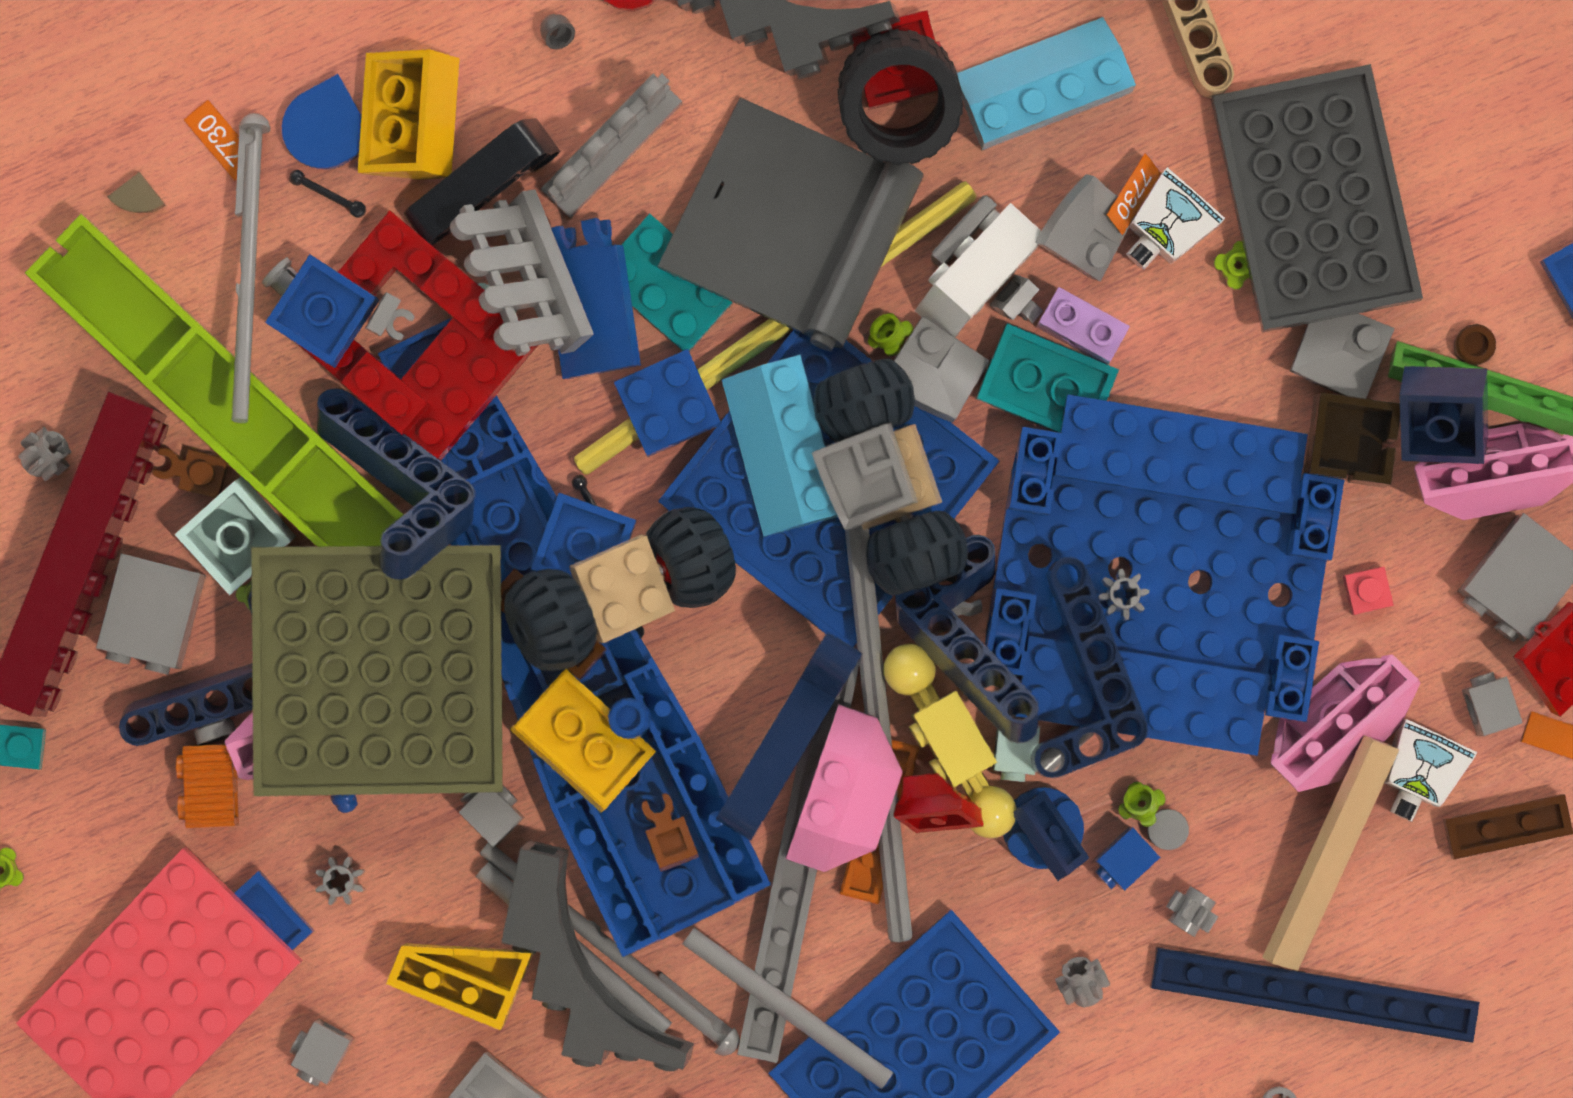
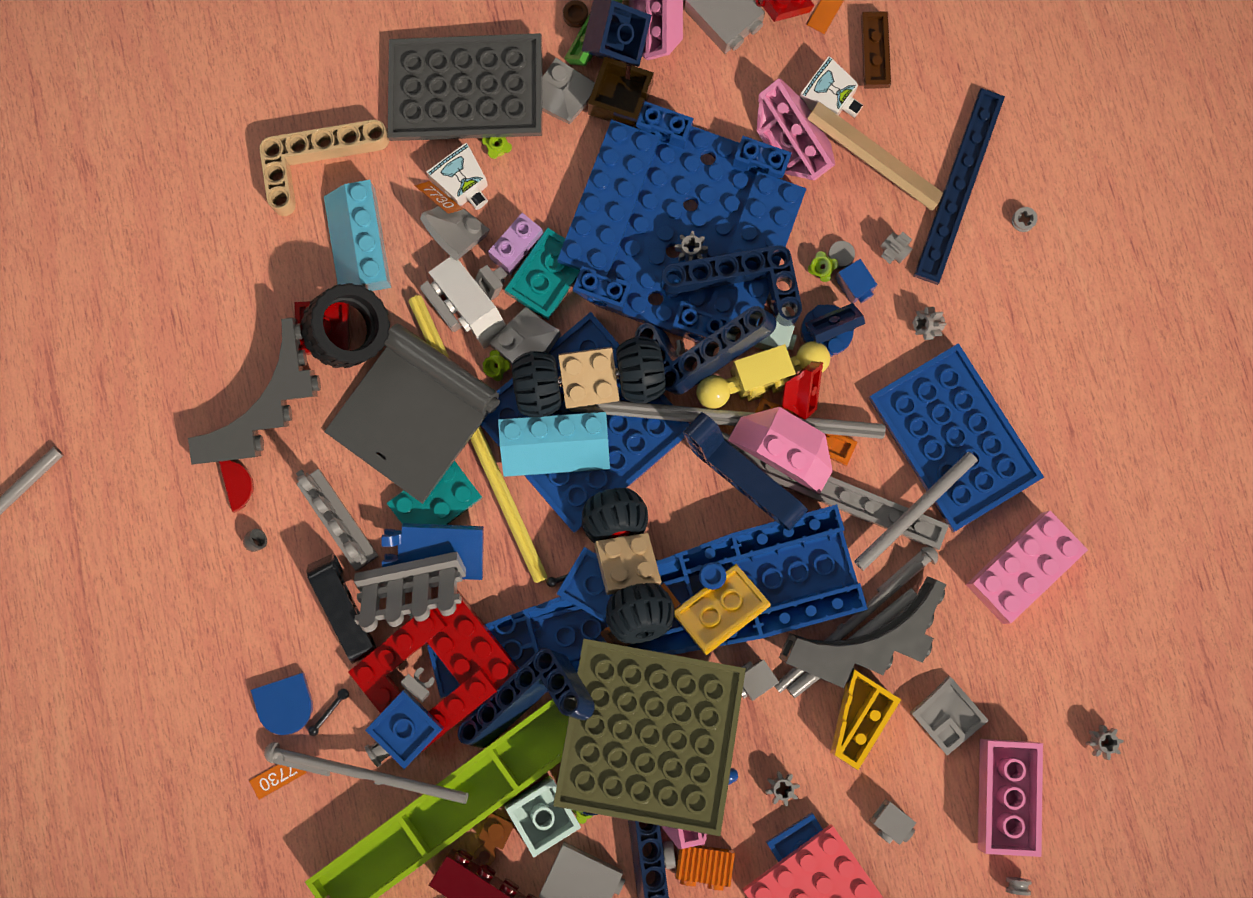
camera: 80 degrees left, 5 degrees down
(137, 196) = (302, 841): dark tan tile -> none
(408, 114) = (287, 647): yellow slope -> none
(667, 403) = (511, 513): blue plate -> none
(669, 839) = (795, 565): dark orange plate -> none
(865, 476) = (586, 390): light grey plate -> none
(1368, 590) = (715, 105): coral plate -> none
(1491, 704) = (799, 44): light grey brick -> none

